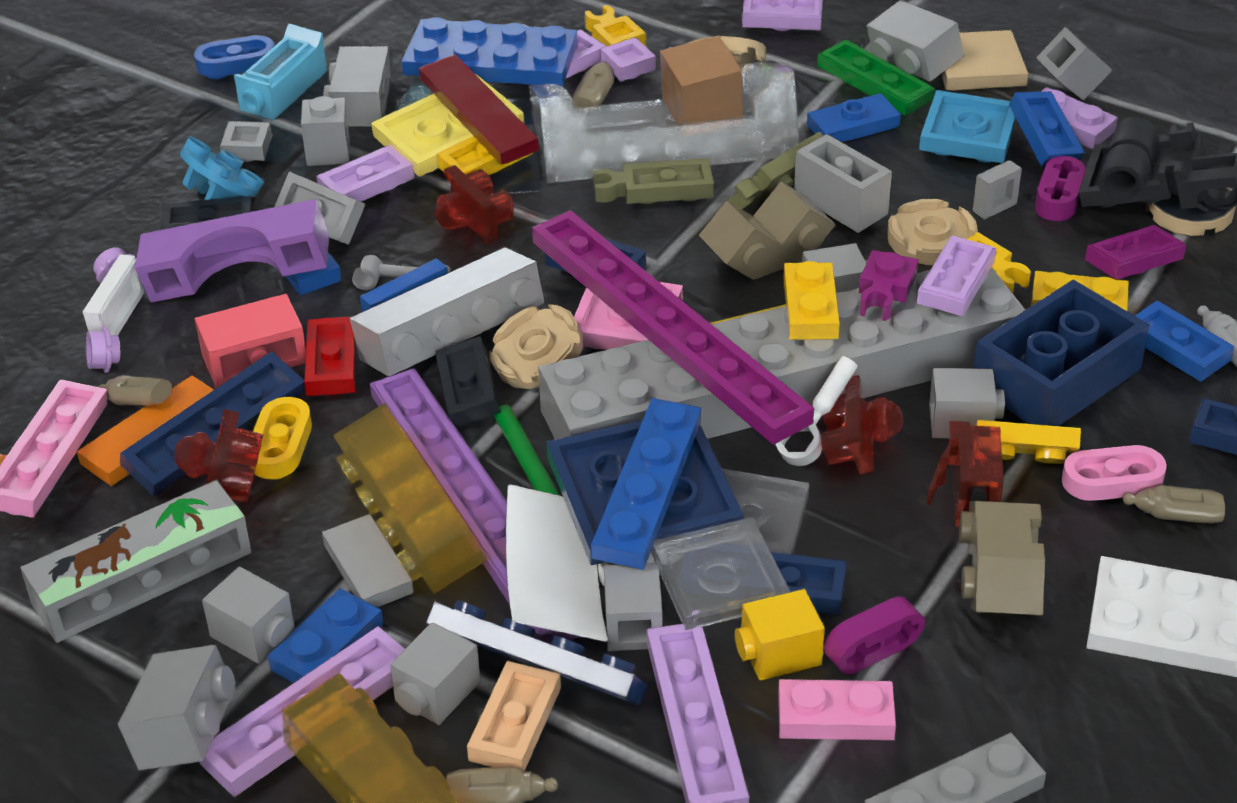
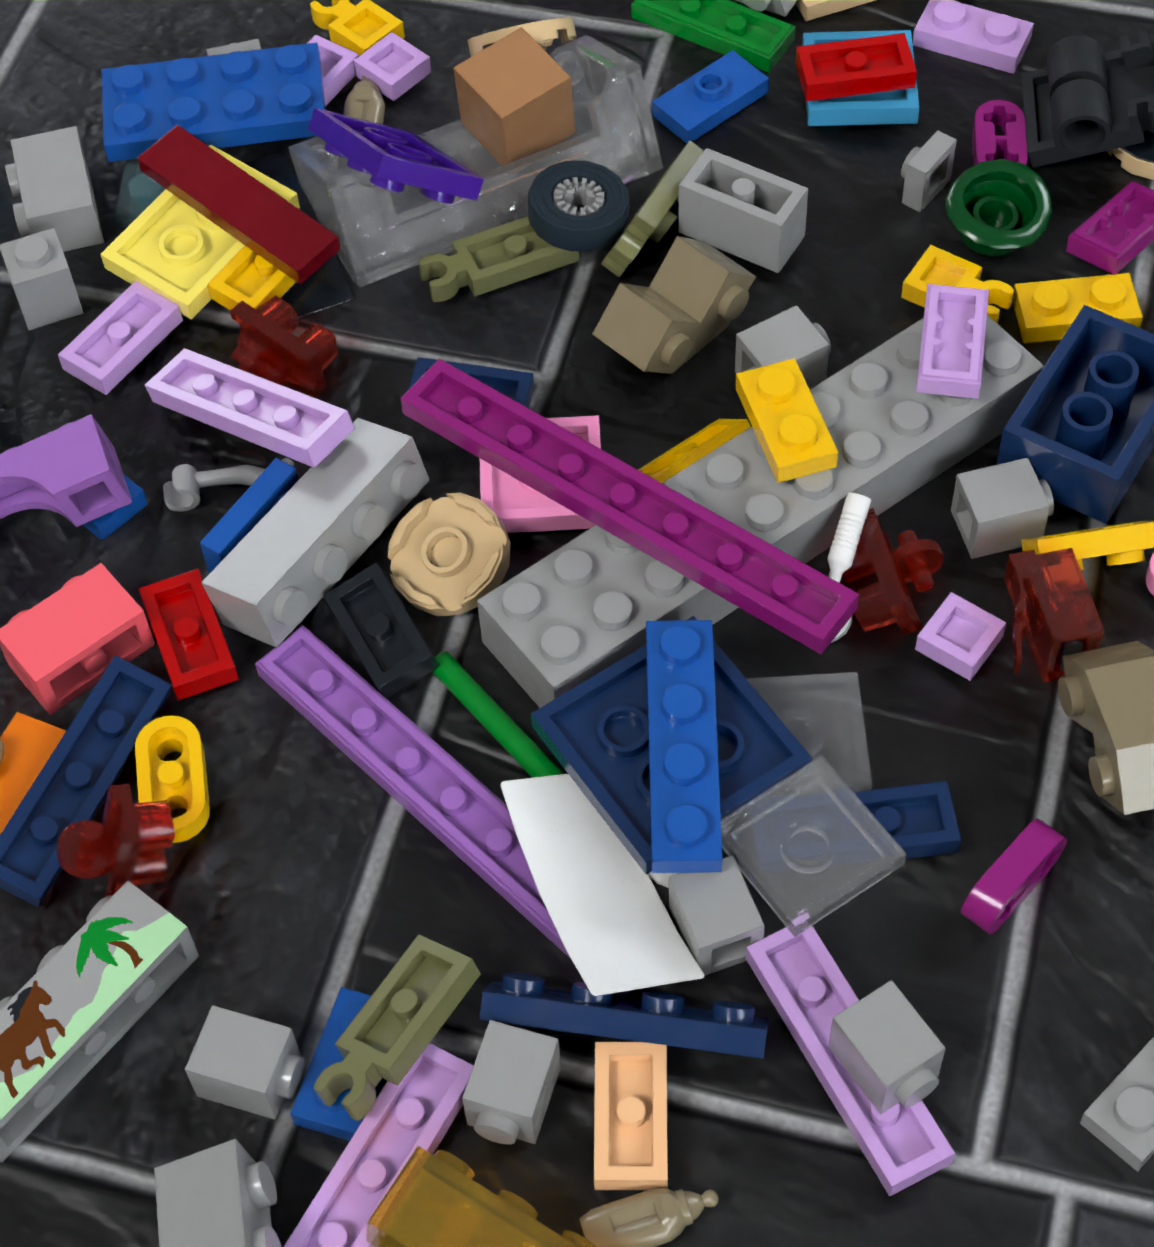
camera: 15 degrees left, 15 degrees up
(338, 210) = (61, 396): light grey plate -> none
(364, 609) = (397, 1023): none -> olive plate
(367, 561) = (349, 929): light grey tile -> none
(410, 498) = (379, 833): clear yellow brick -> none
(433, 228) = (250, 407): none -> lavender plate
(594, 97) = (395, 157): none -> dark purple plate
(719, 706) = (887, 1048): none -> light grey brick
(721, 156) = (578, 182): none -> black bush
(780, 635) = (906, 907): yellow brick -> none
(836, 709) = (1001, 989): bright pink plate -> none
(886, 279) = (867, 367): magenta plate -> none
(898, 477) = (960, 636): none -> lavender plate
(925, 227) = (866, 250): tan tile -> none
(963, 112) = (855, 67): none -> red plate
(1038, 218) = (998, 207): none -> dark green hat
(1045, 126) = (956, 62): blue plate -> none

